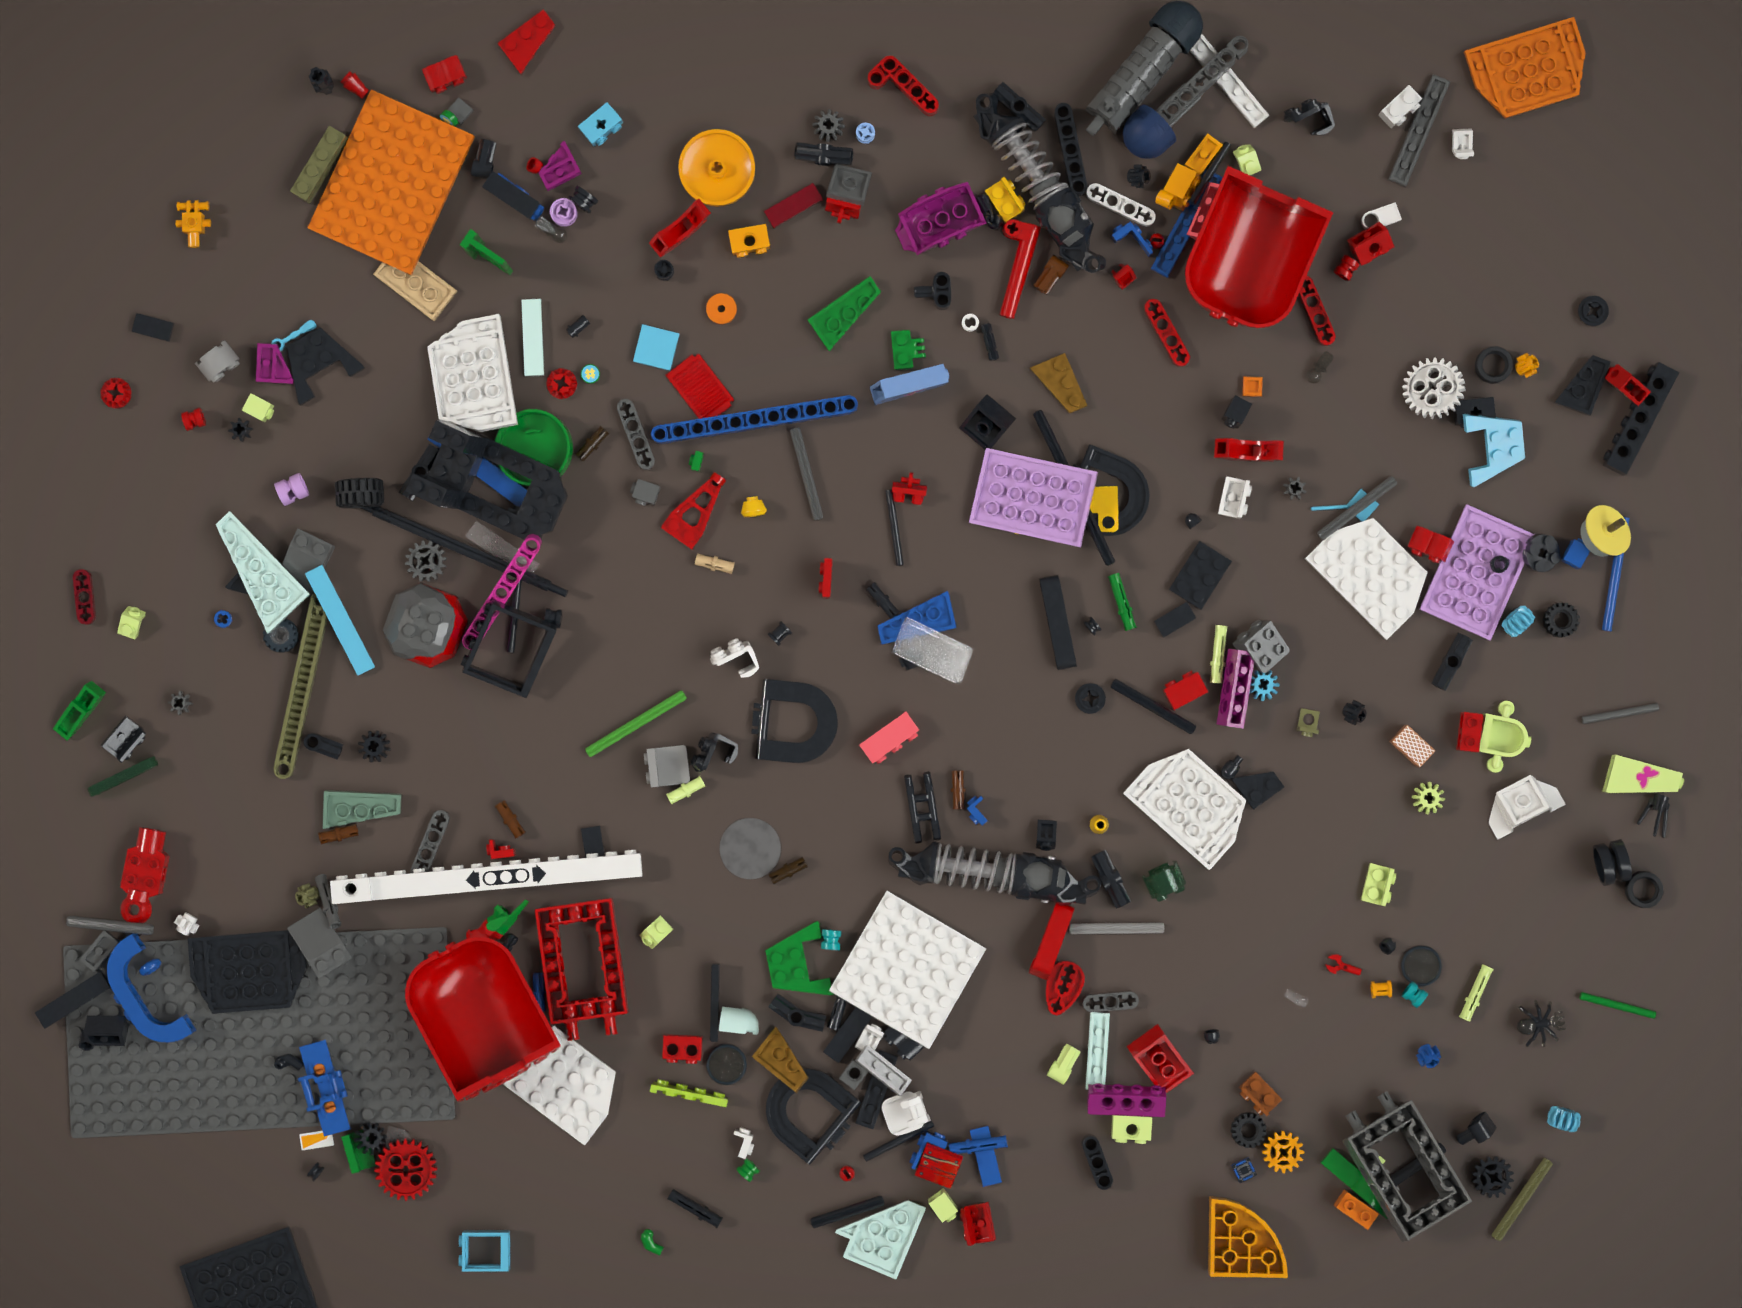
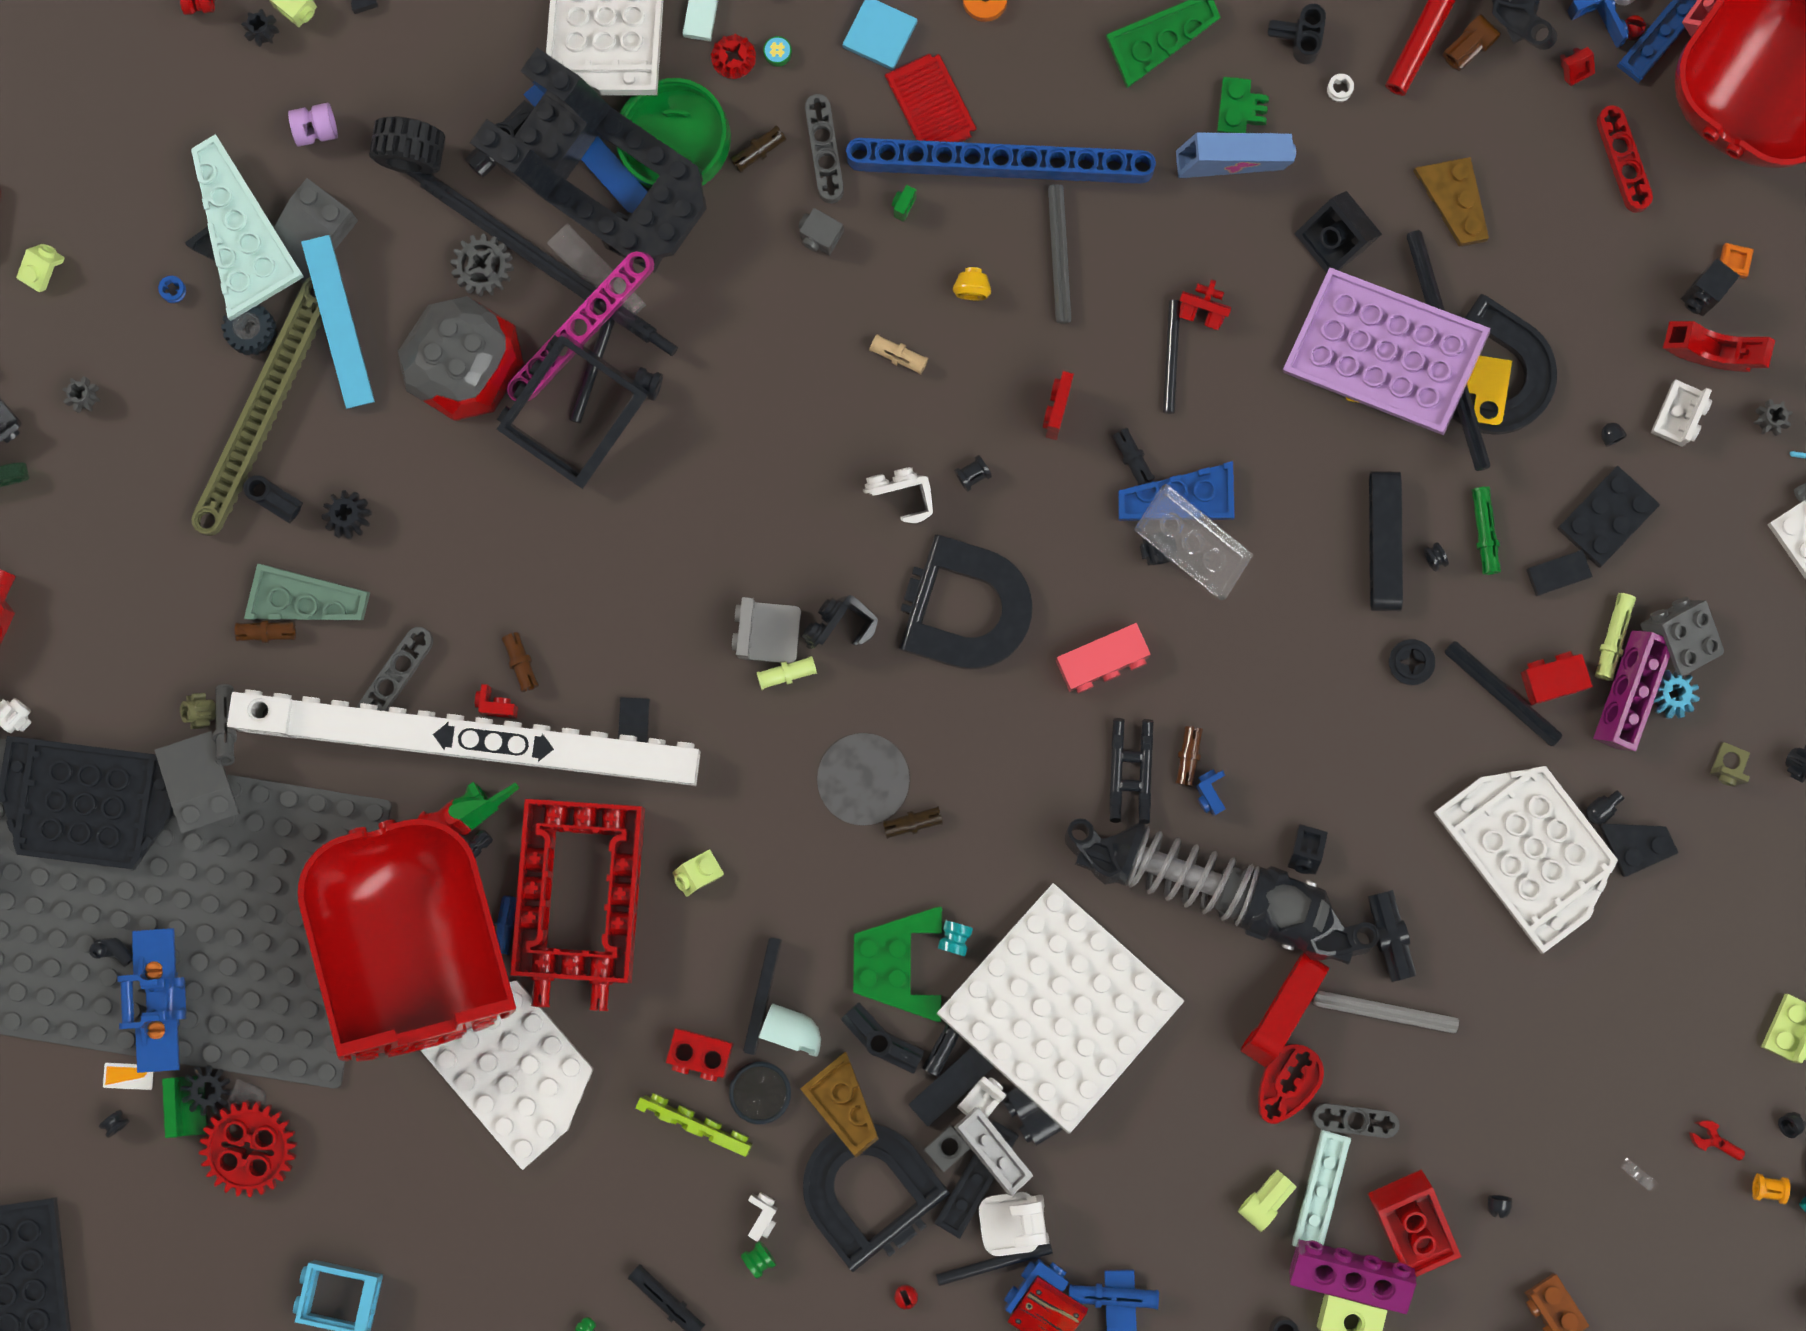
camera: 15 degrees right, 5 degrees down
(635, 723) = (734, 561): bright green axle -> none
(682, 530) = (862, 298): red plate -> none
(990, 342) = (1363, 120): black axle -> none
(1093, 824) = (1382, 851): yellow cone -> none
(1164, 880) = (1473, 955): clear green brick -> none

